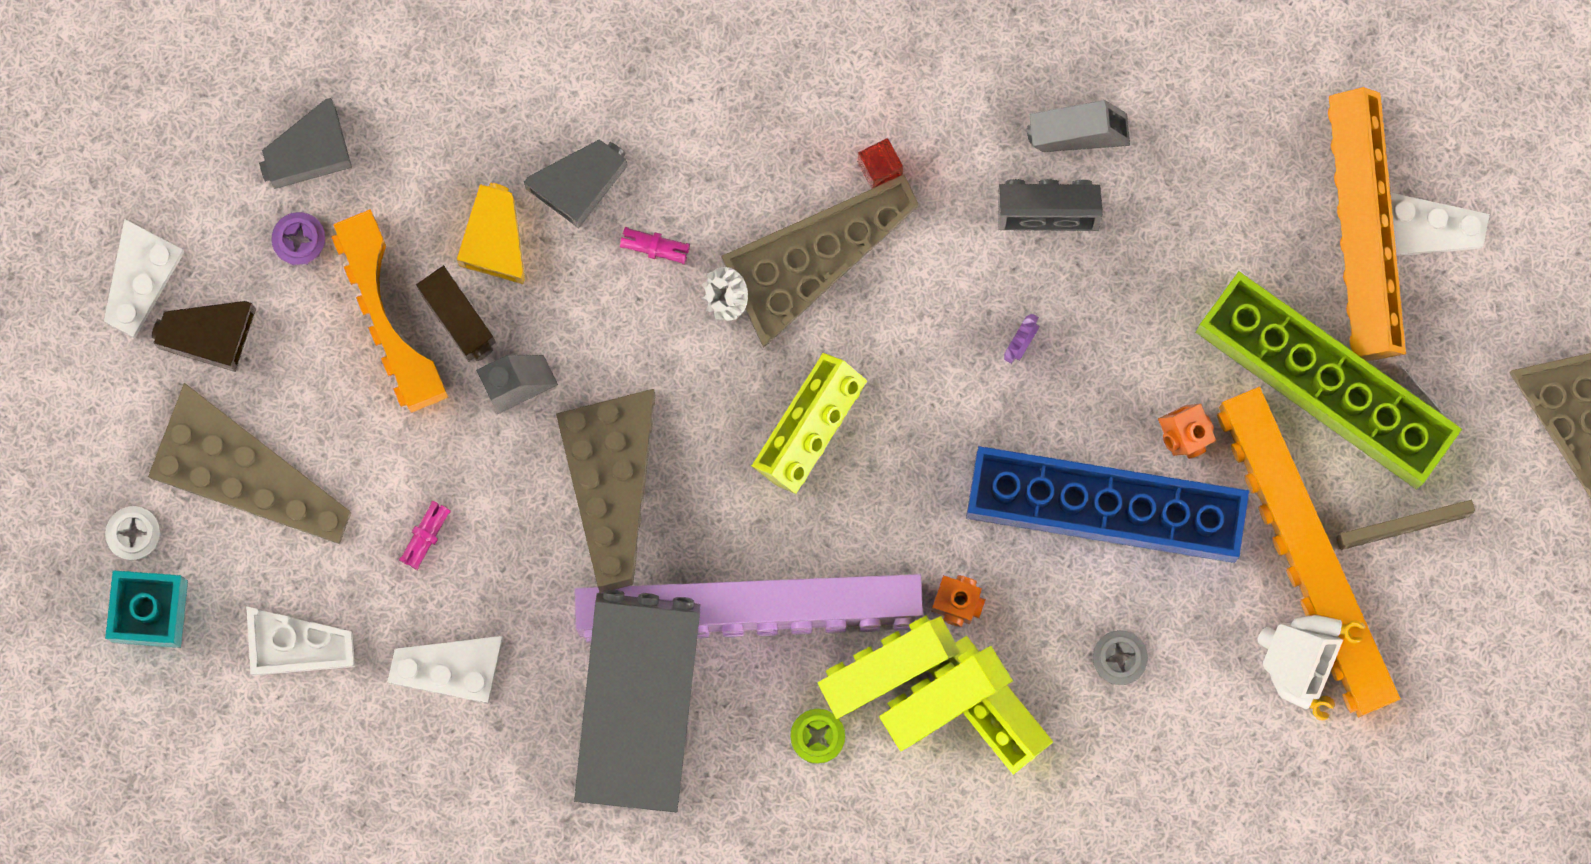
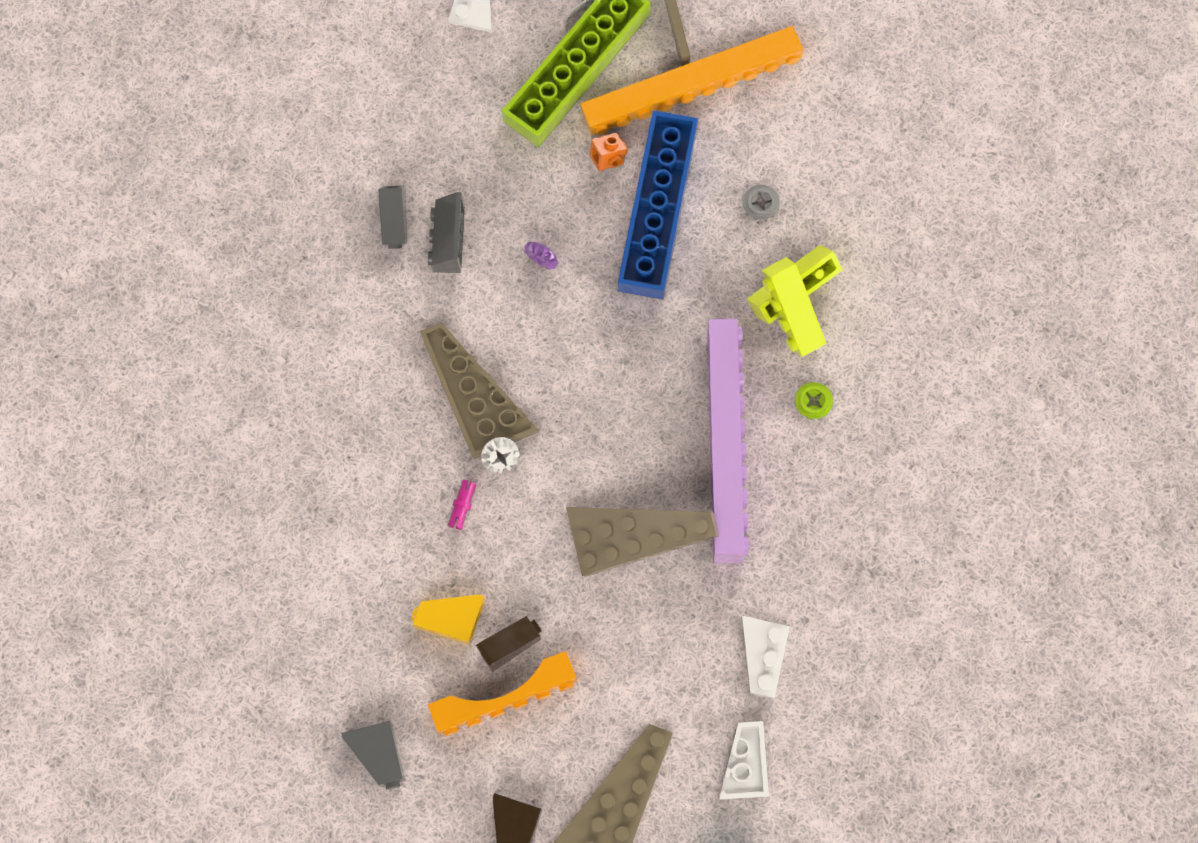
camera: 85 degrees left, 5 degrees down
(289, 226) = (438, 752): medium lavender gear -> none
(424, 535) = (668, 670): dark pink pin -> none
(516, 379) = (560, 601): dark grey slope -> none
(578, 180) = (413, 556): dark grey slope -> none
(637, 701) = (794, 514): dark grey brick -> none
(809, 423) = (596, 398): neon yellow brick -> none
(880, 163) = (412, 345): clear red brick -> none
(889, 666) = (770, 345): neon yellow brick -> none
(960, 587) = (722, 302): orange brick -> none
(1303, 656) = (763, 83): white torso -> none
(1366, 224) = (470, 33): light orange brick -> none

